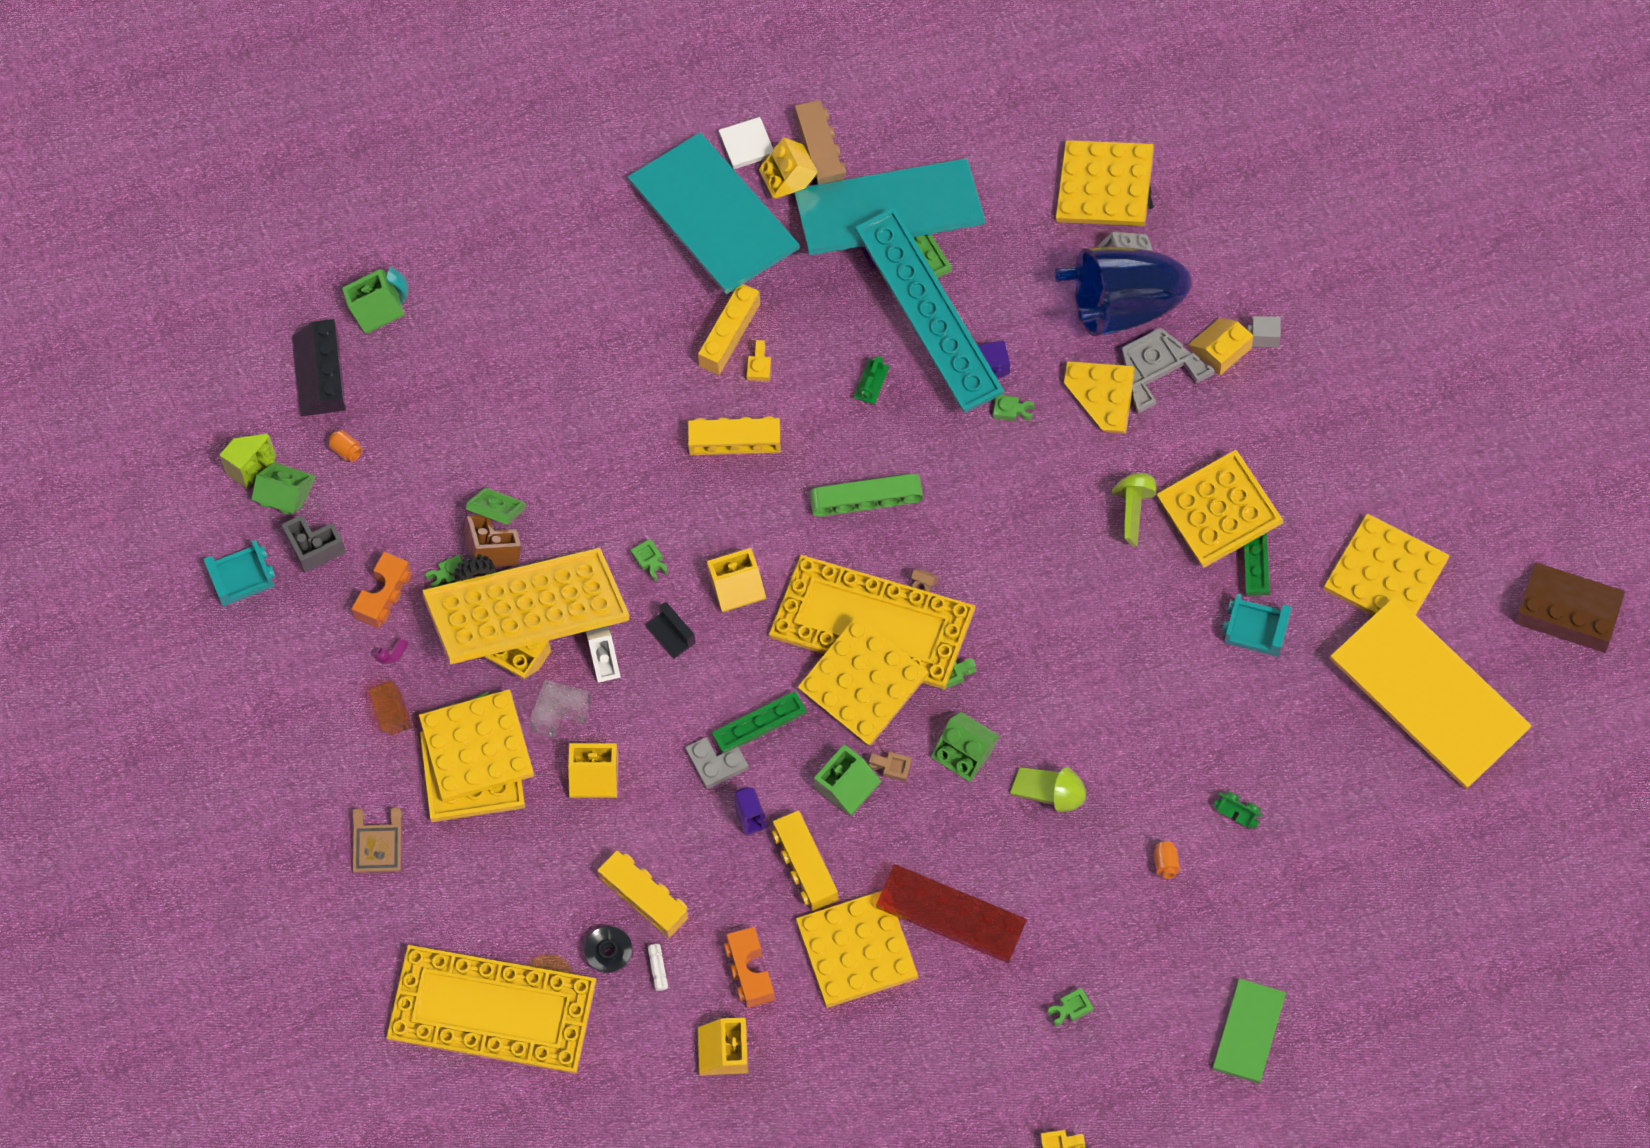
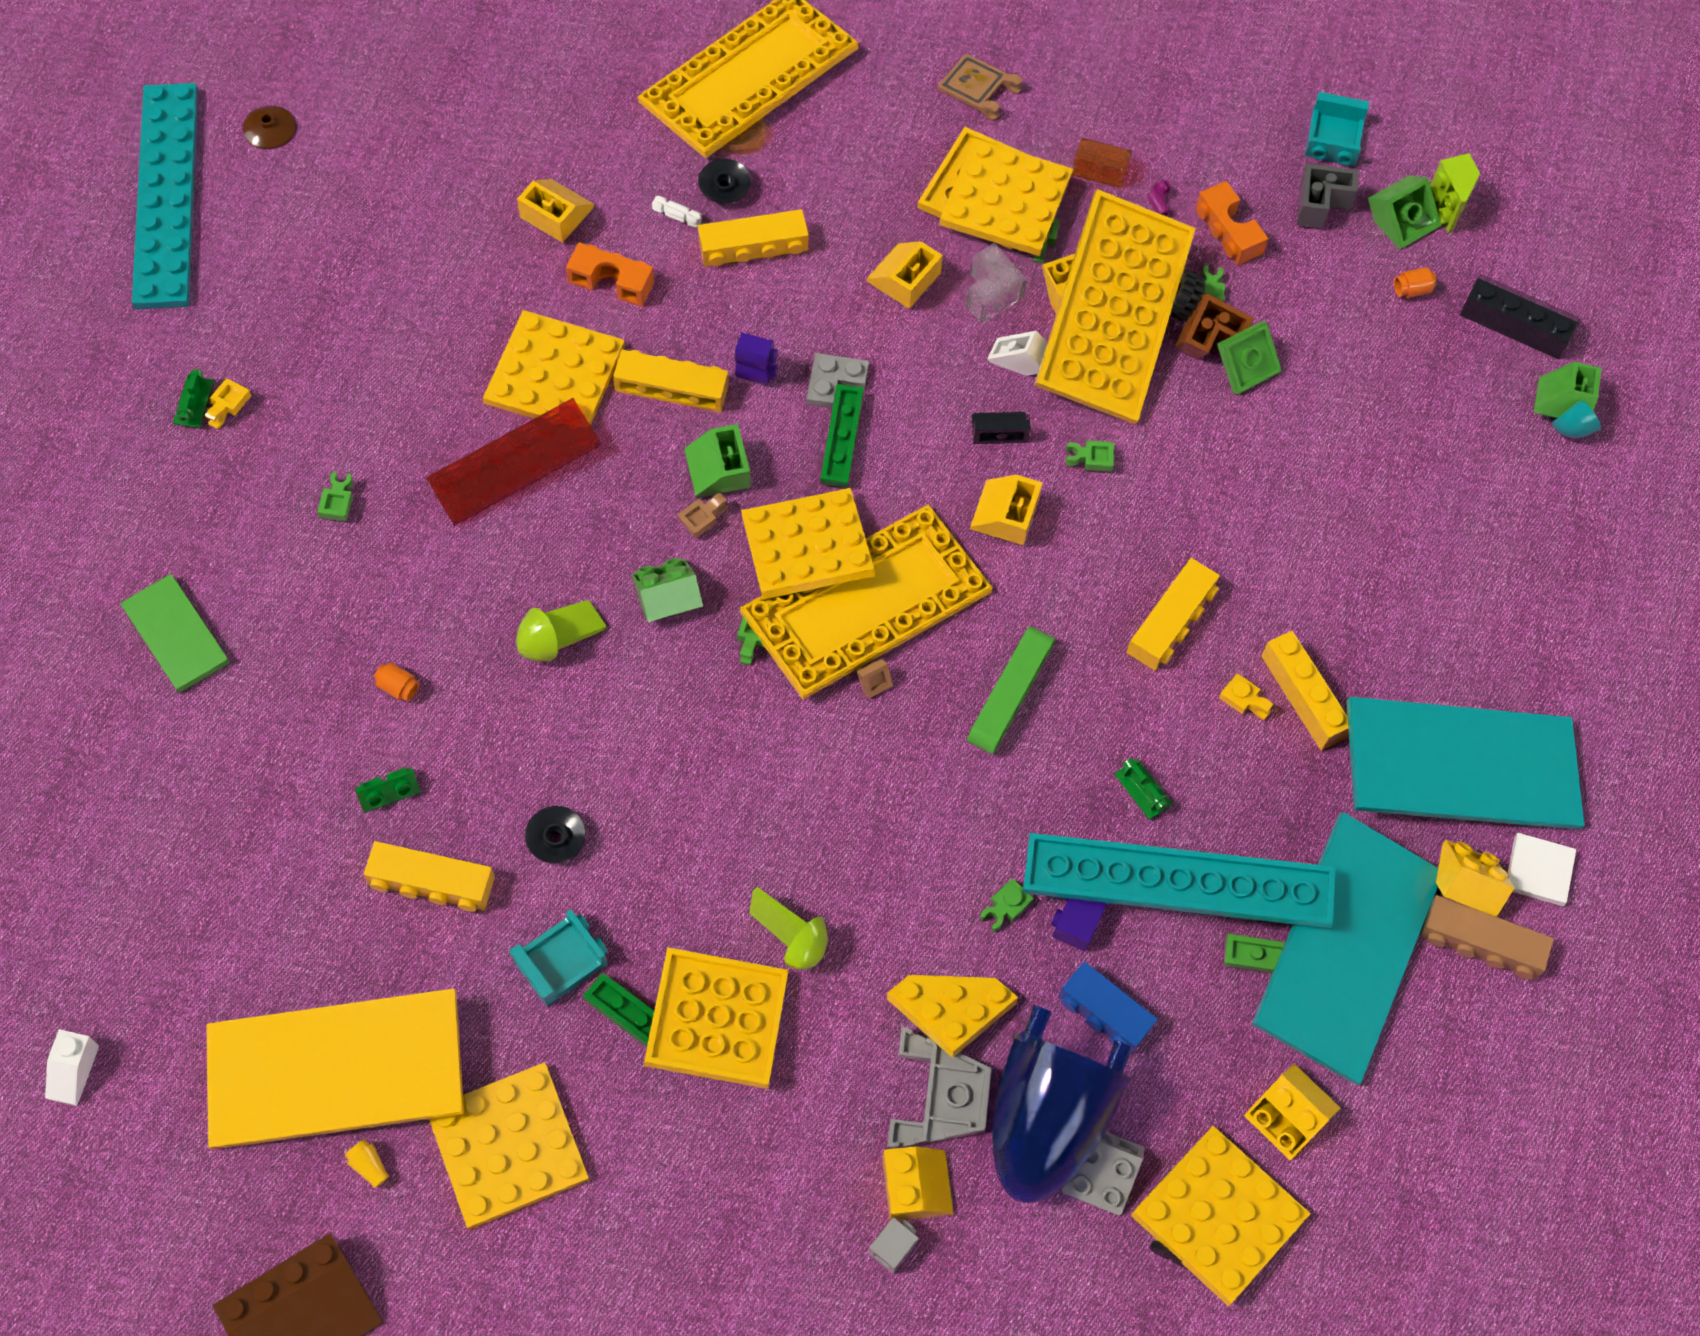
camera: 120 degrees right, 0 degrees up
(1013, 182) = (1292, 1111): none -> yellow slope
(1034, 311) = (1106, 1007): none -> blue brick
(1185, 675) = (551, 822): none -> black dish
(1273, 736) = (429, 876): none -> yellow brick
(1462, 639) = (367, 1163): none -> yellow cone
(1556, 844) = (69, 1066): none -> white slope

